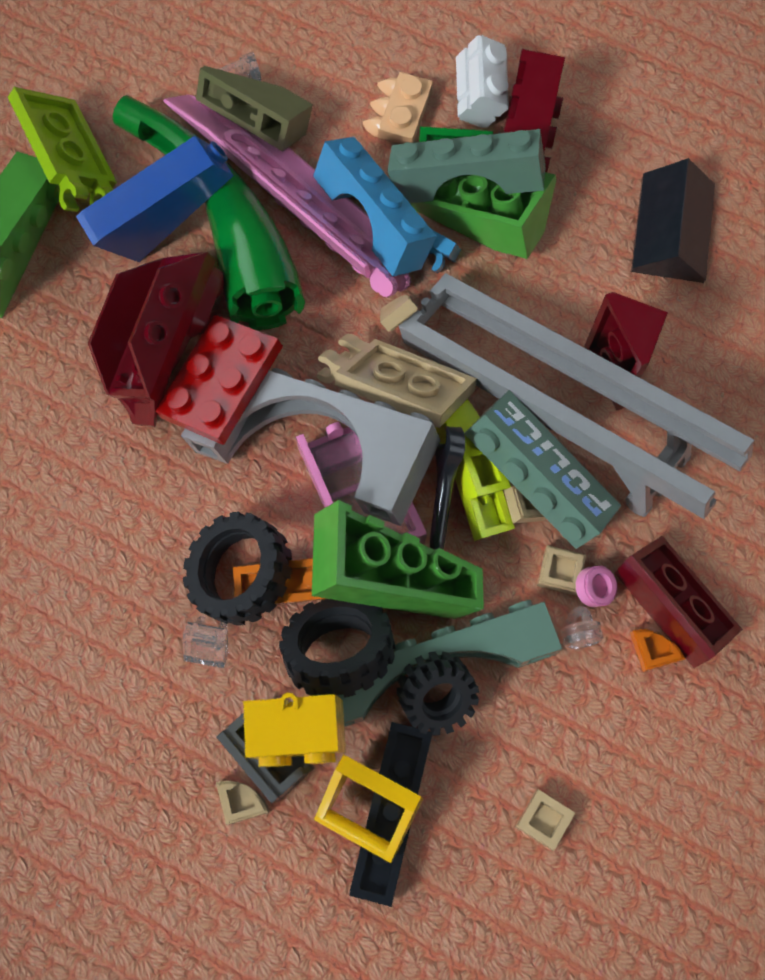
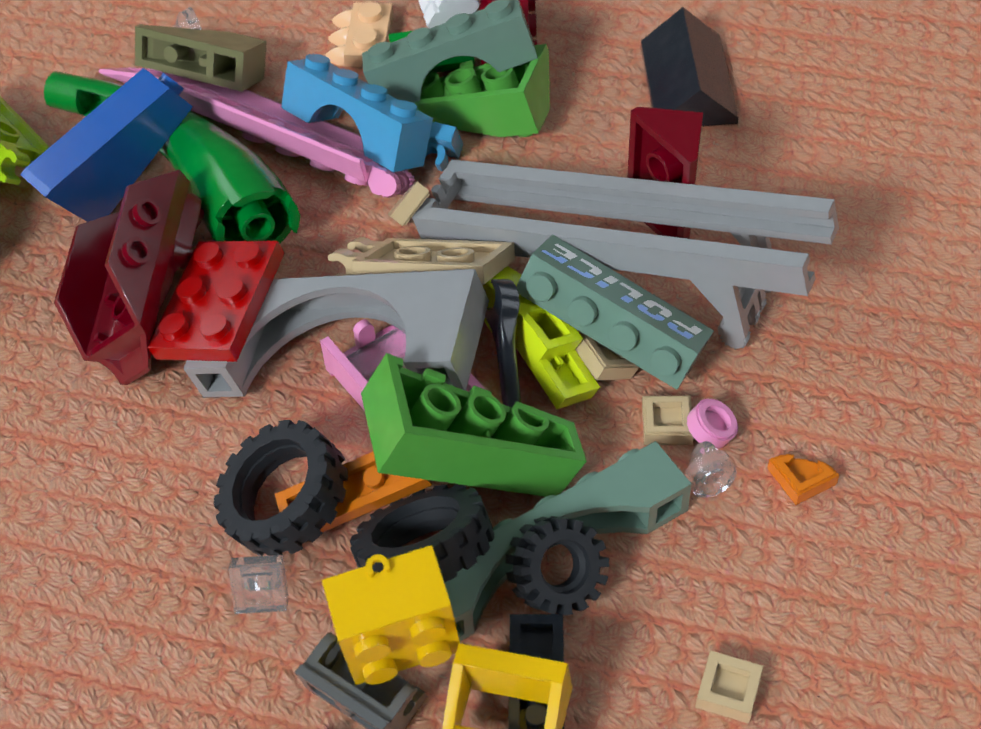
camera: 10 degrees left, 20 degrees down
(678, 601) = (807, 420): dark red slope -> none

